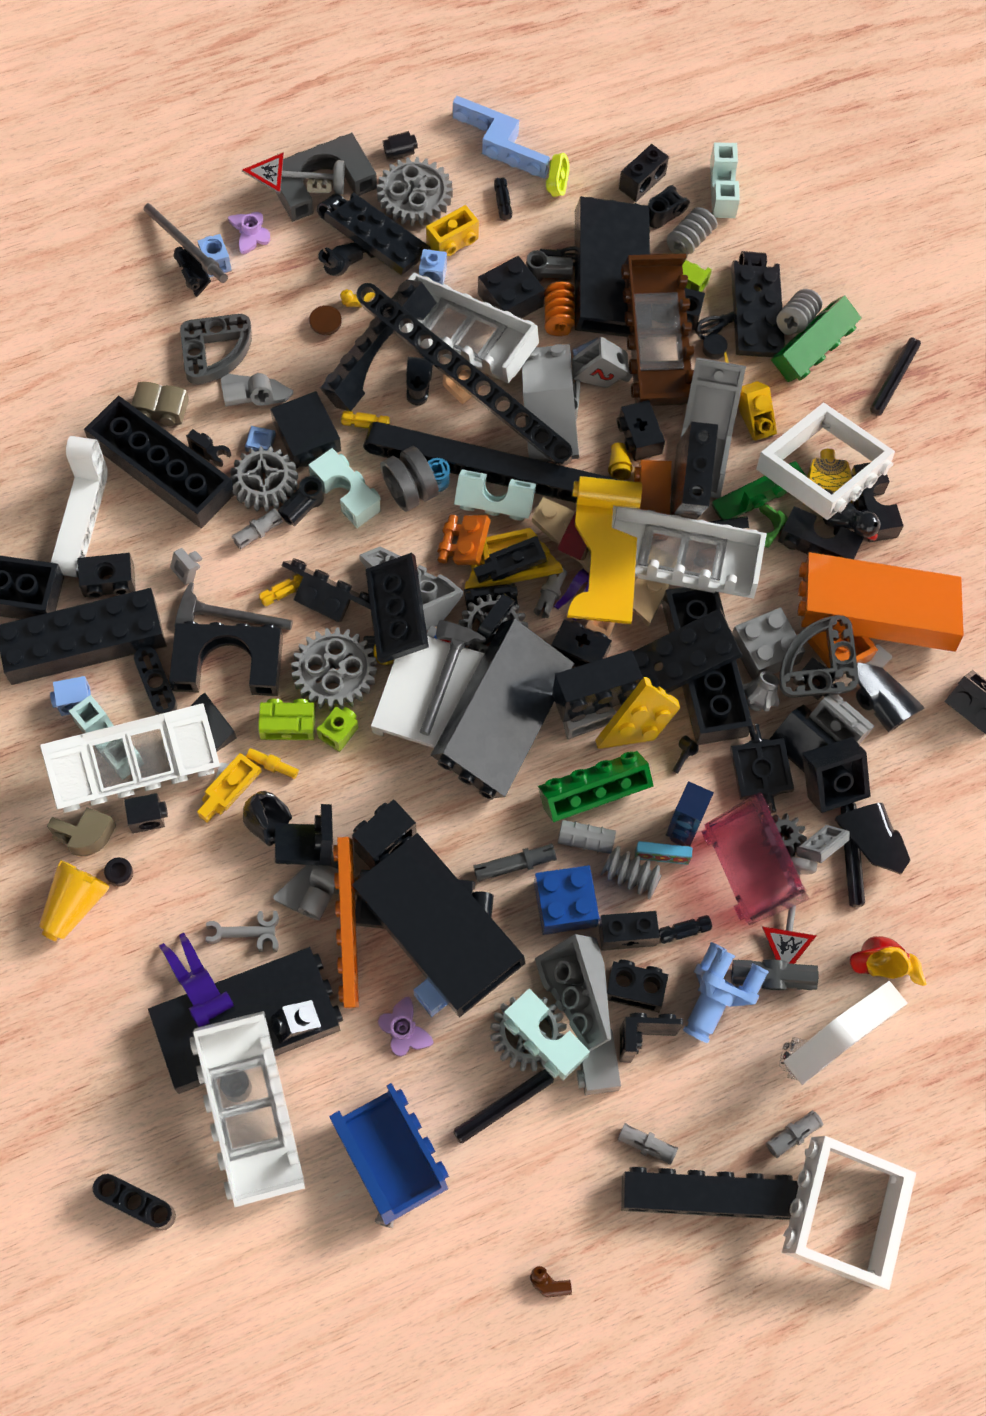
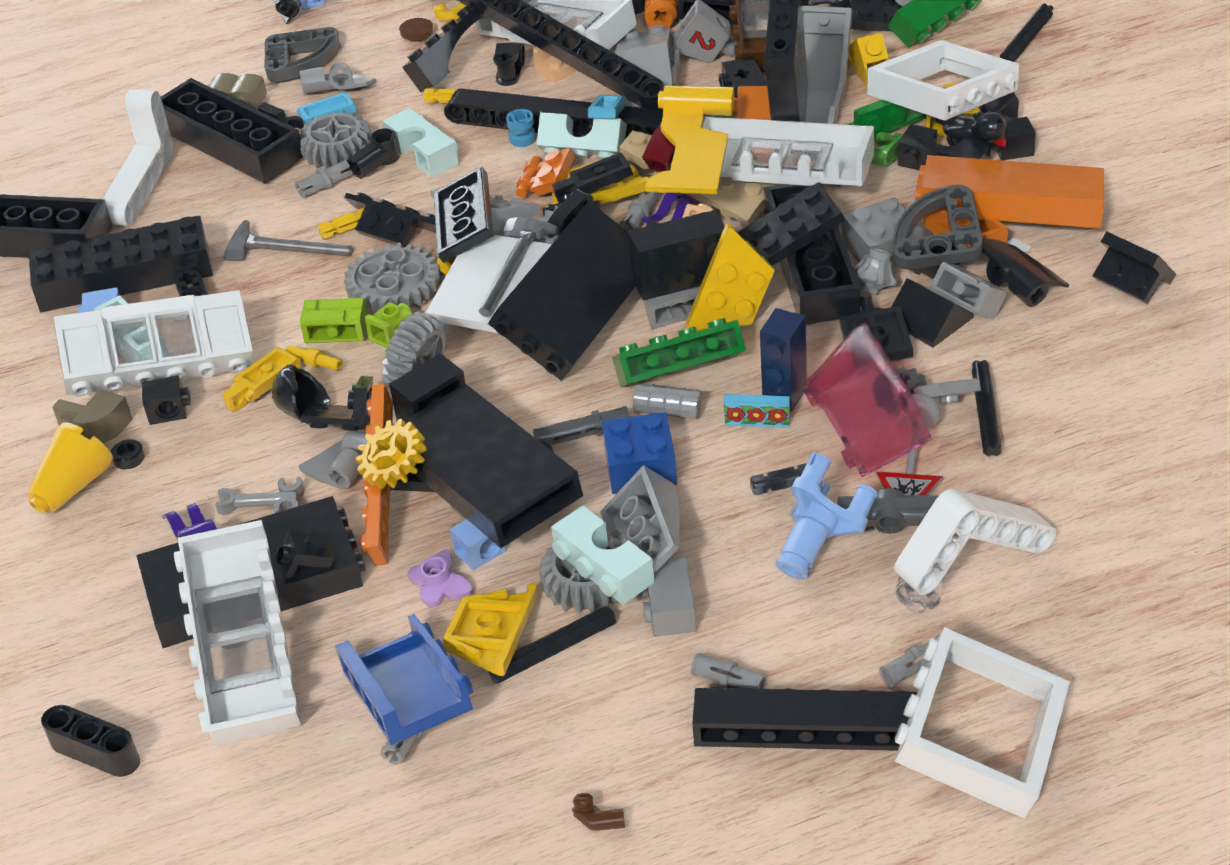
camera: 10 degrees right, 25 degrees down
(94, 568) = (153, 210): black brick -> none
(185, 565) = (241, 206): light grey tile -> none
(196, 641) = (245, 263): black arch -> none
(220, 728) = (260, 329): black slope -> none
(251, 436) = (336, 103): none -> medium azure tile
(305, 429) = (382, 97): black brick -> none
(367, 784) = (413, 343): none -> light grey gear
(373, 921) = (391, 454): none -> yellow gear
(409, 478) = (488, 124): flat silver wheel -> none
(453, 1092) = (490, 627): none -> yellow wing
(519, 470) = (606, 107): none -> medium azure tile
(628, 930) = (712, 476): black brick -> none
(632, 871) = (718, 427): light grey piece -> none
(635, 994) = (719, 527): black brick -> none
(638, 1025) = (730, 554): black bracket -> none
(836, 774) = (961, 327): black brick -> none
(875, 837) = (1011, 383): black panel -> none
(887, 959) = (1026, 487): yellow hair -> none

